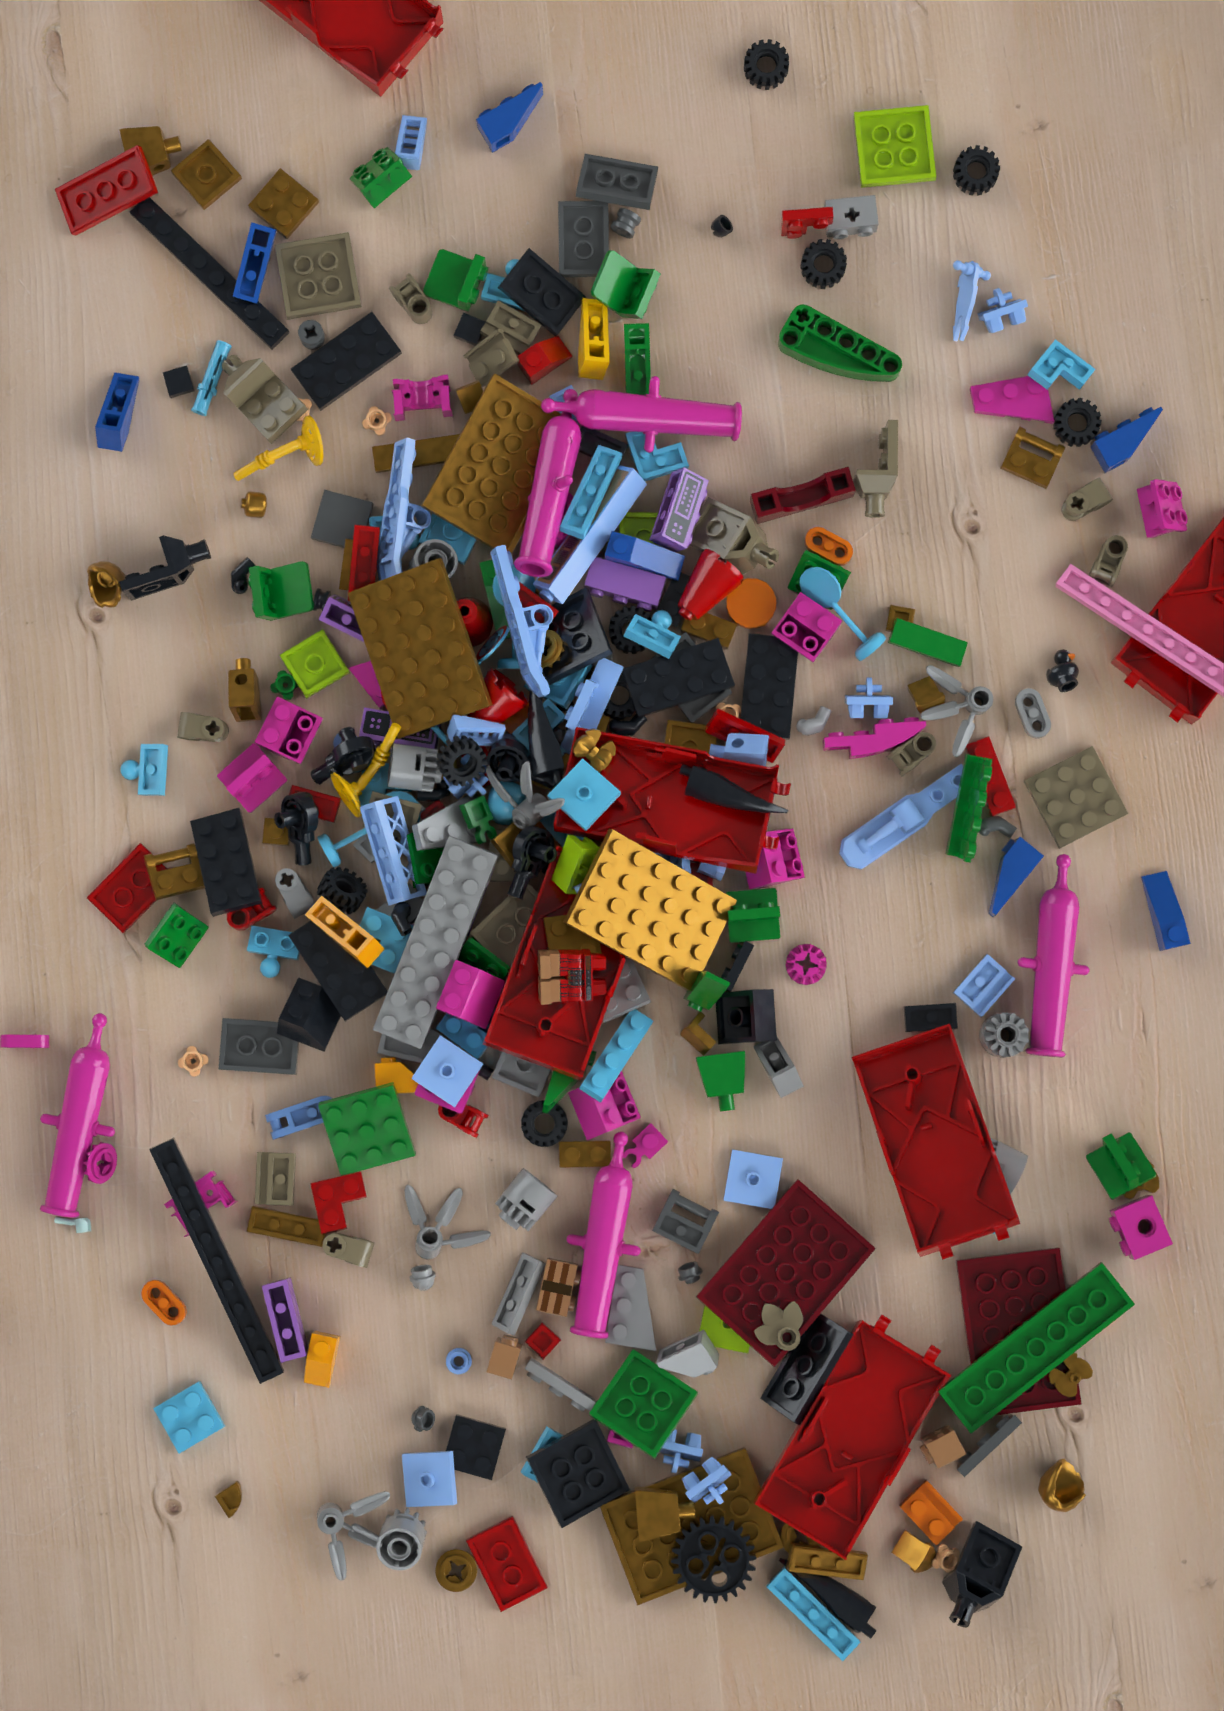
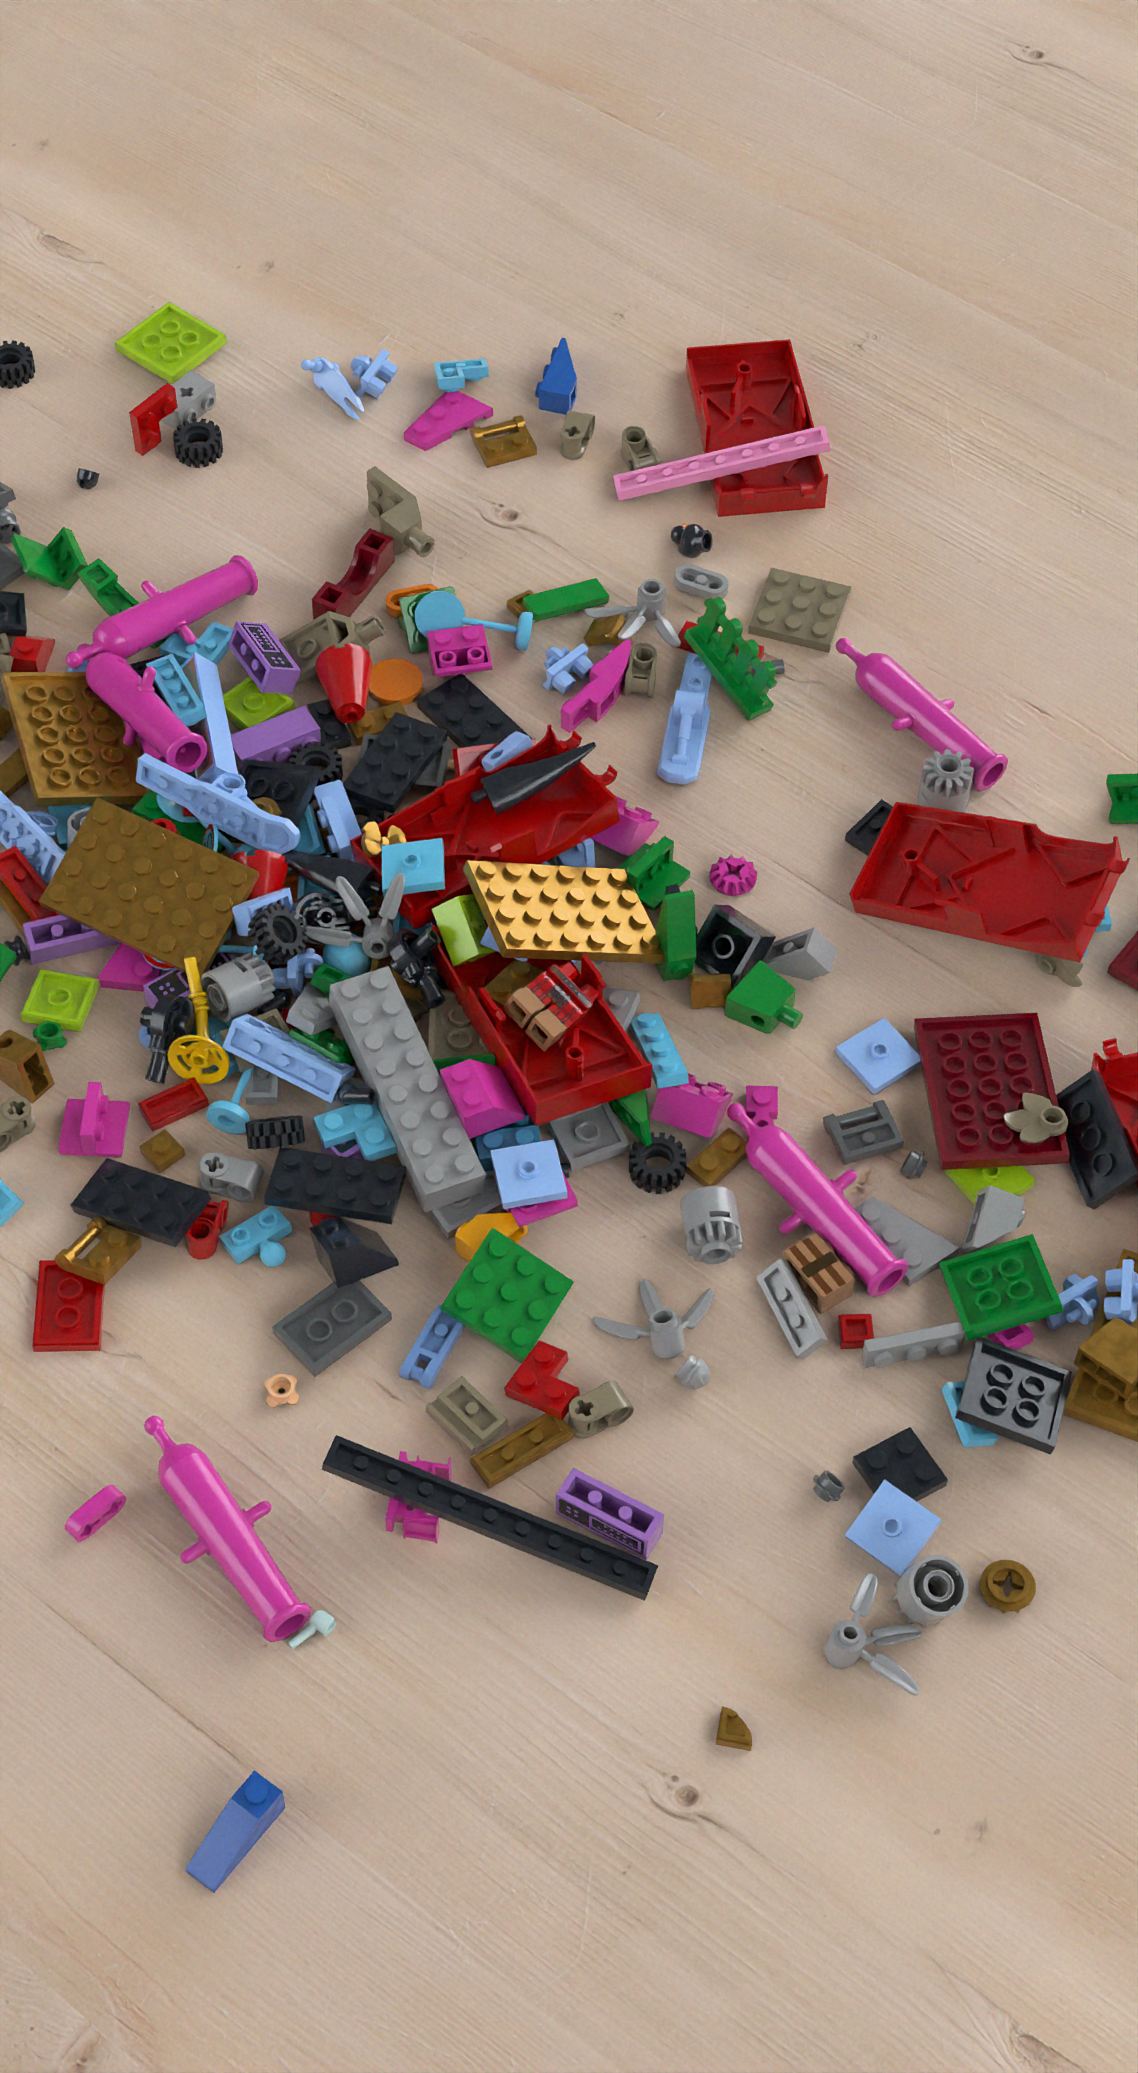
camera: 50 degrees left, 30 degrees down
(104, 1171) = (283, 1545): dark pink gear -> none
(162, 1304) = (477, 1610): orange plate -> none
(176, 935) = (152, 1299): green bracket -> none
(189, 1417) = (612, 1695): medium azure plate -> none
(288, 730) = (91, 1055): dark pink slope -> none
(300, 823) = (178, 1113): black pin -> none
(321, 1358) = (682, 1521): light orange slope -> none
(345, 931) = (317, 1140): light orange slope -> none
(451, 1364) = (807, 1405): light blue plate -> none
(464, 1119) = (580, 1220): red piece -> none
(504, 1356) = (841, 1358): medium nougat brick -> none
(506, 1563) = (1044, 1539): red tile -> none
(593, 340) = (65, 612): yellow slope -> none
(644, 555) = (265, 702): slope -> none
(653, 634) = (338, 743): medium azure plate -> none
(816, 724) = (541, 717): light grey arm -> none
(827, 353) = (270, 481): green beam -> none
(980, 156) = (252, 324): black tyre -> none
(984, 985) = (887, 774): light blue plate -> none
(1013, 869) = (814, 686): blue slope -> none
(1084, 409) = (511, 386): black tyre -> none
(1162, 508) = (636, 397): dark pink bracket -> none
(1165, 911) = (961, 622): blue slope -> none

